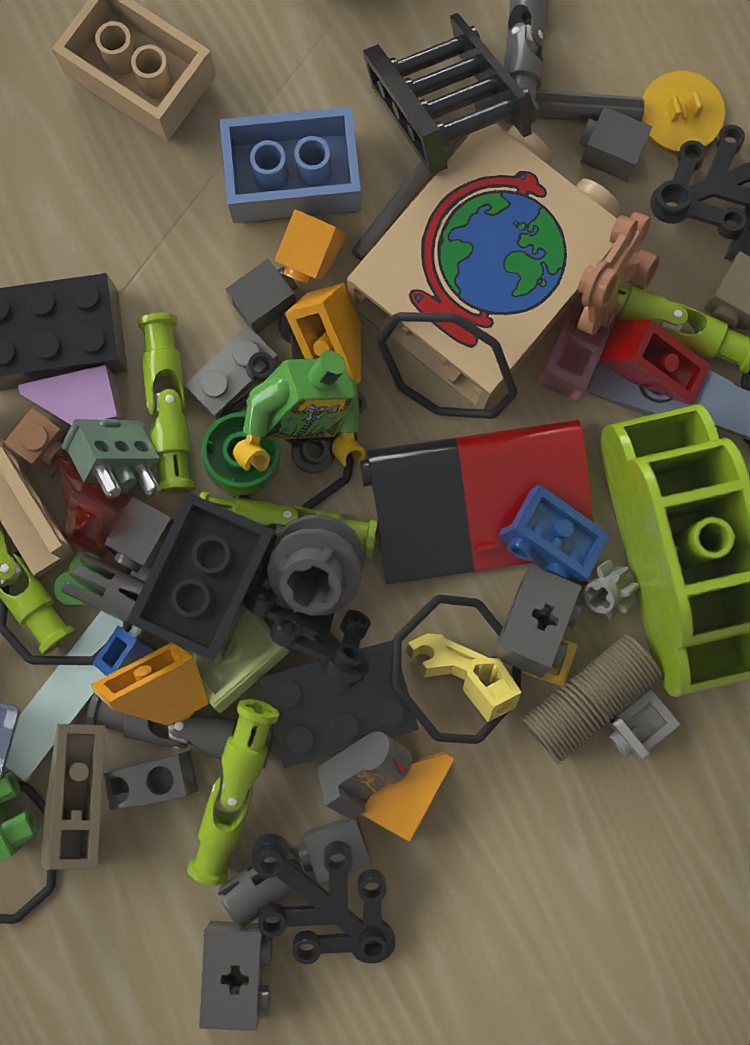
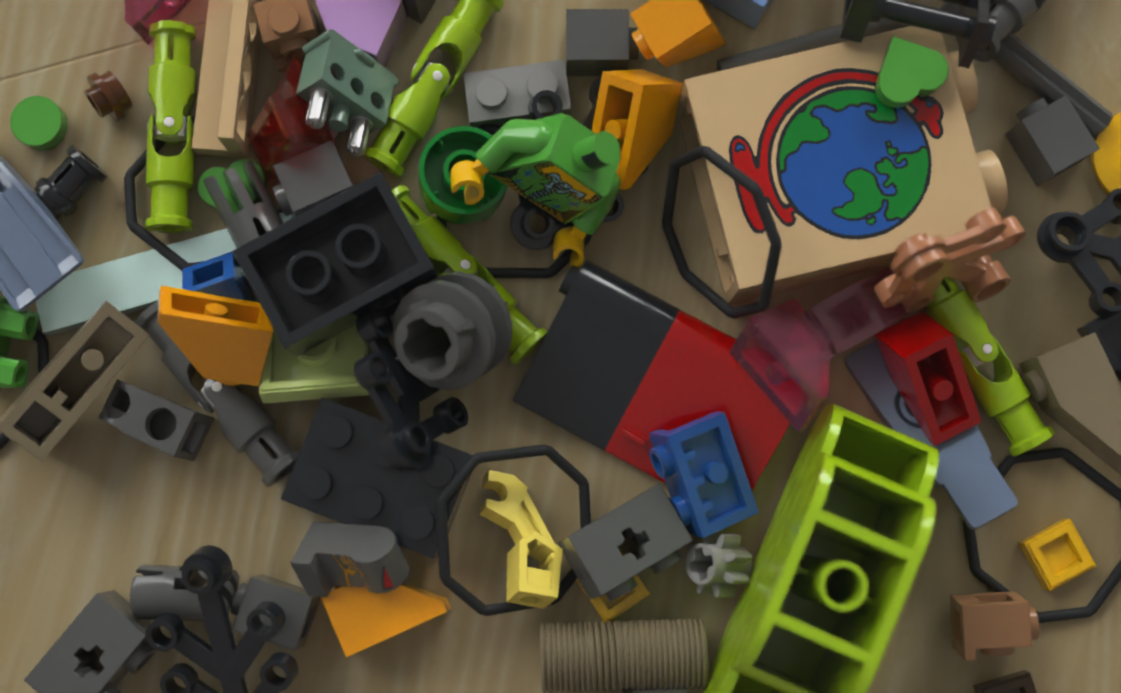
camera: 40 degrees right, 0 degrees up
(241, 766) = (243, 466): lime piece -> none
(494, 165) = (909, 72): none -> bright green tile
(556, 418) = (787, 360): none -> clear pink slope

